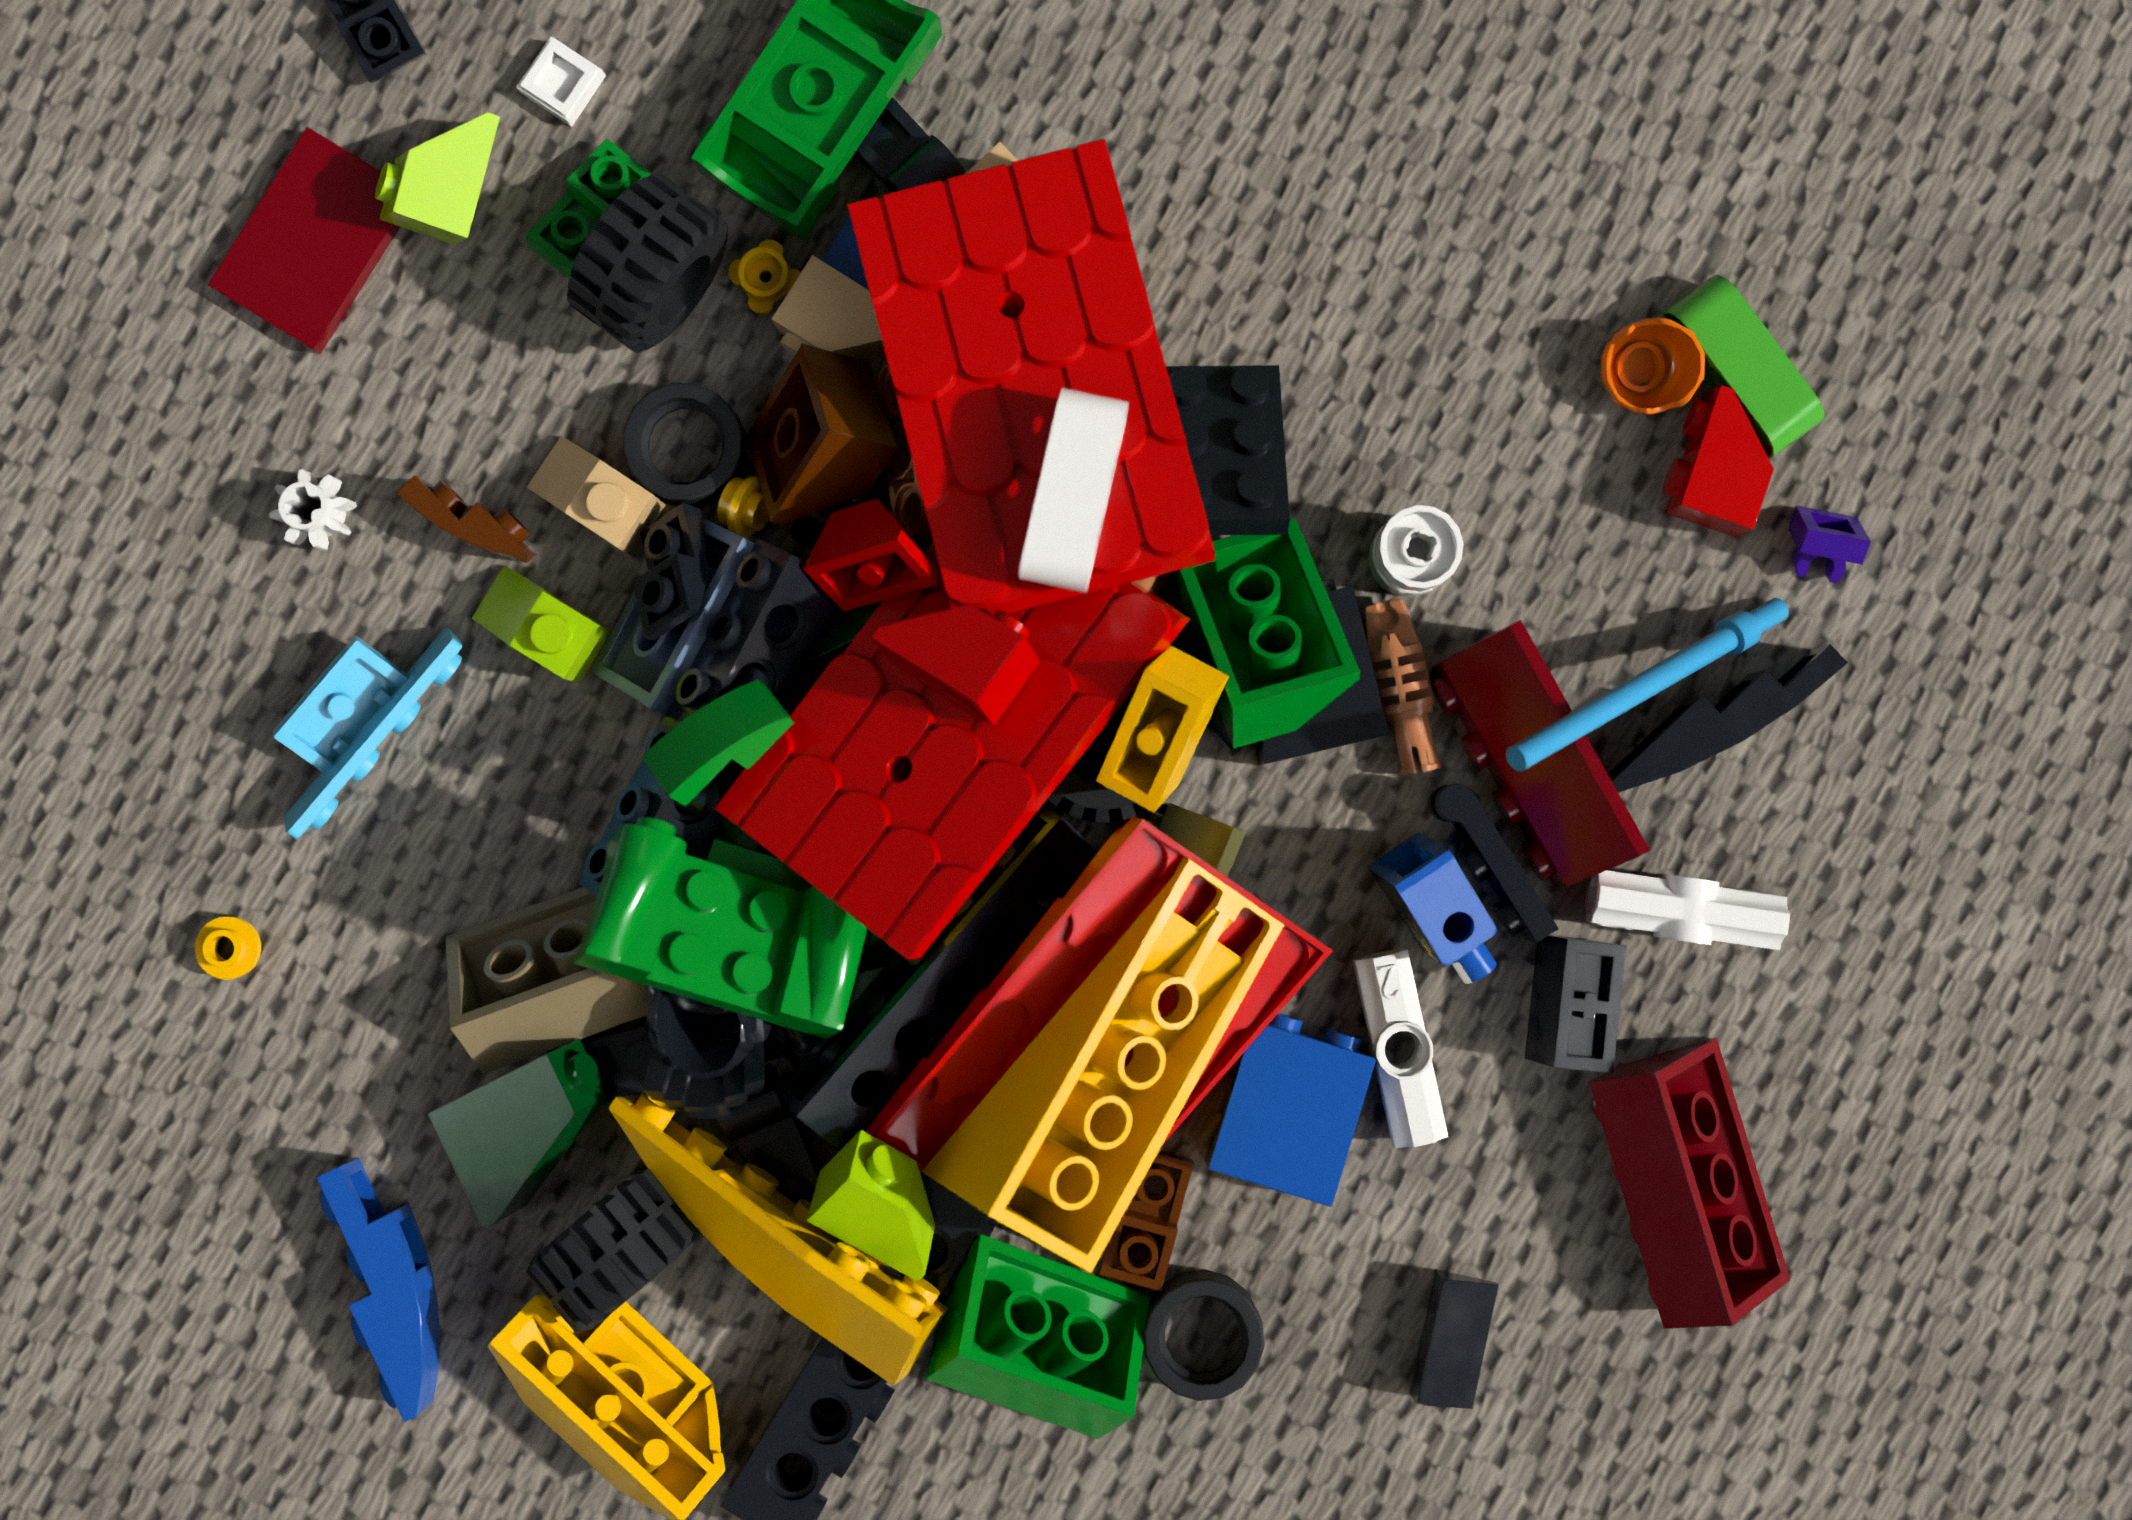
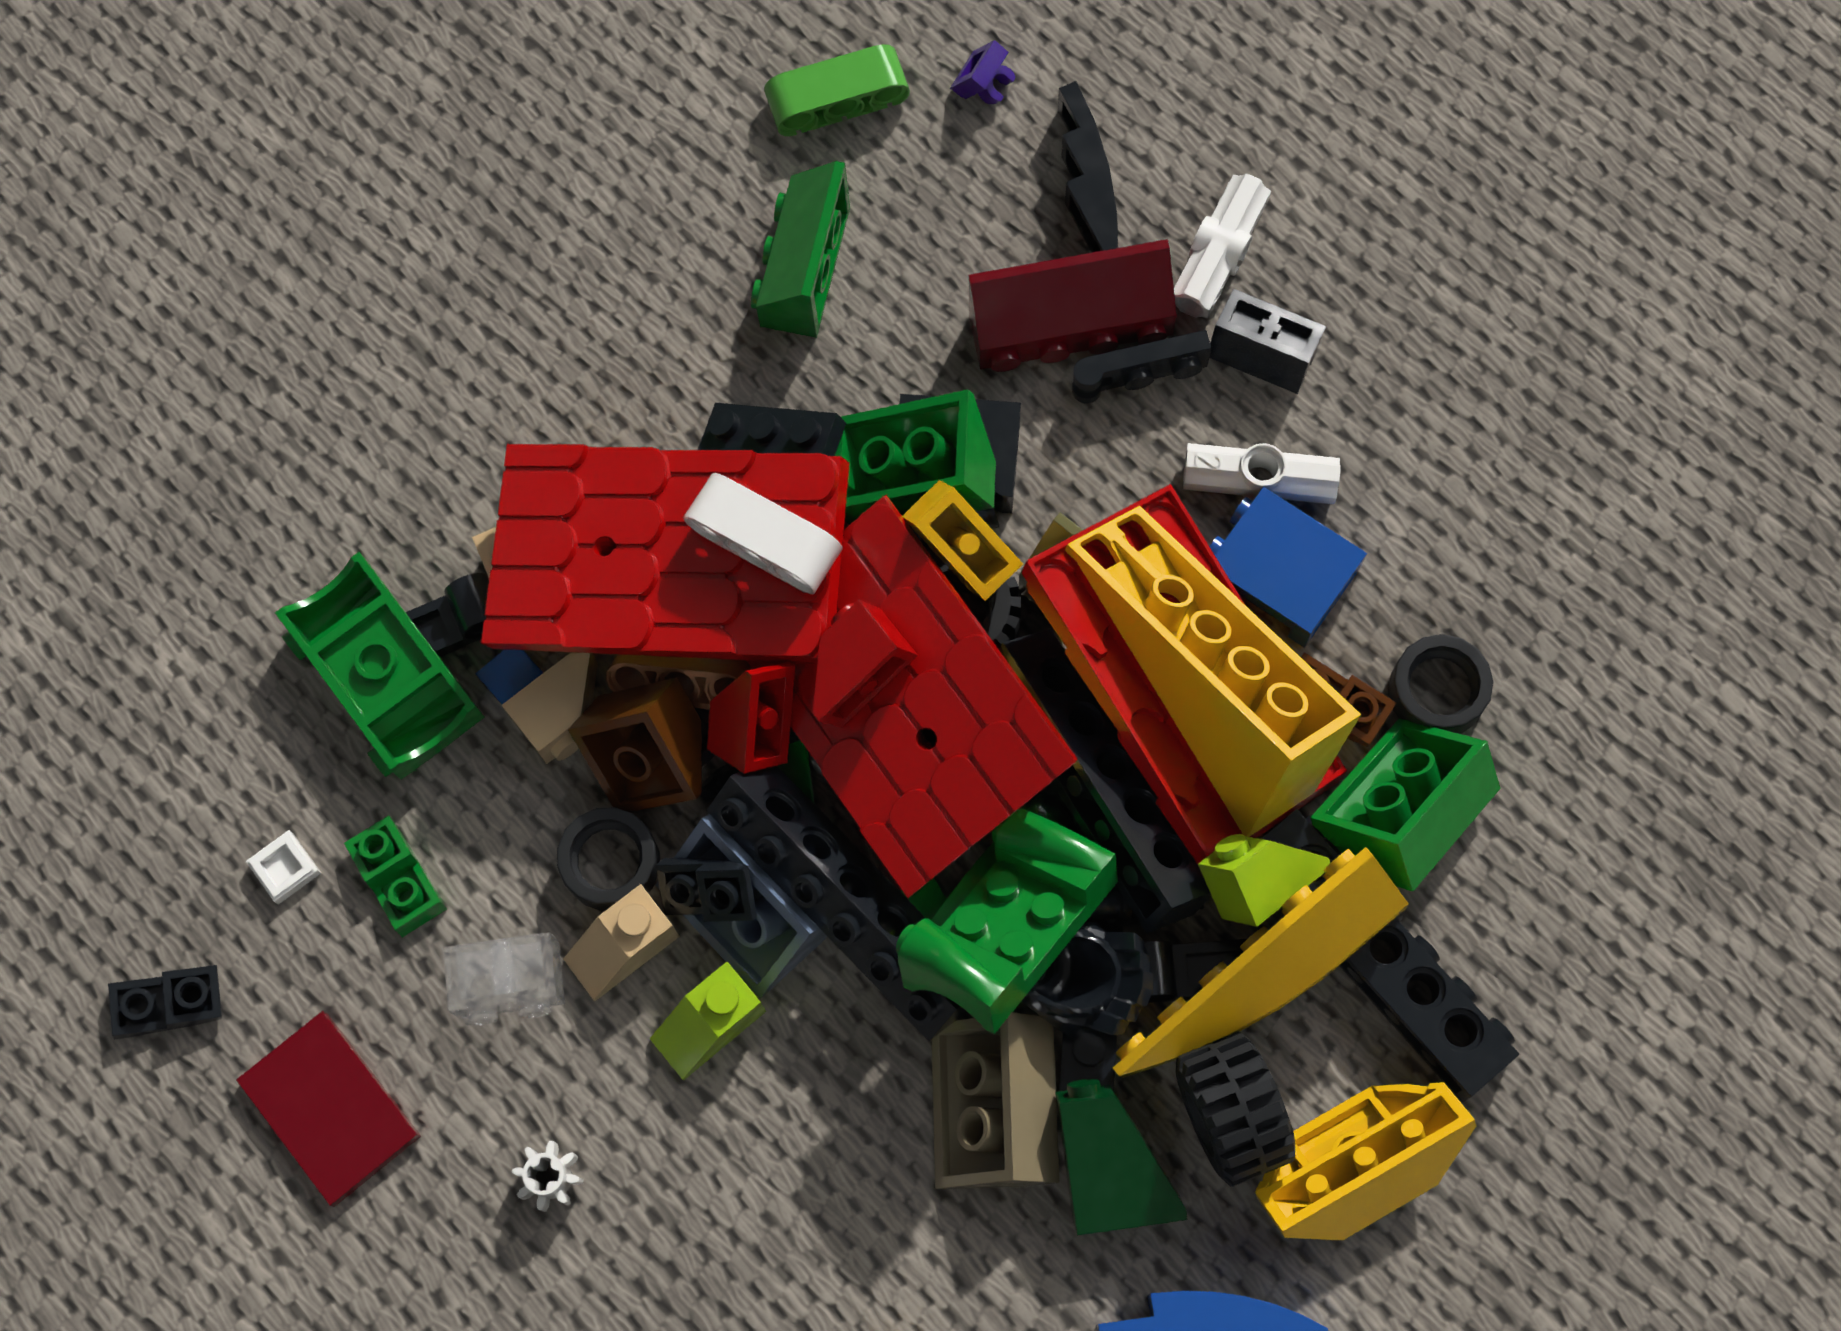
camera: 70 degrees left, 15 degrees down
(351, 713) = (729, 1199): medium azure bracket -> none
(439, 181) = (327, 979): slope -> none
(491, 531) = (618, 1037): reddish brown slope -> none
(507, 379) = (504, 978): none -> clear brick
(647, 262) = (459, 828): black tyre -> none
(729, 728) = (851, 872): green slope -> none
(743, 506) = (672, 826): yellow plate -> none
(747, 273) = (489, 747): yellow plate -> none
(1402, 682) = (988, 384): nougat hinge -> none
(1415, 551) = (890, 346): white wheel -> none
(1437, 905) = (1159, 410): torso -> none
(1453, 1340) = (1497, 508): black slope -> none
(1507, 401) = (803, 250): none -> green slope
(1653, 352) = (809, 137): orange hair -> none
(1690, 1186) = (1427, 305): dark red slope -> none
(1722, 469) = (905, 124): red slope -> none
(1730, 637) = (1029, 154): dark azure bar -> none

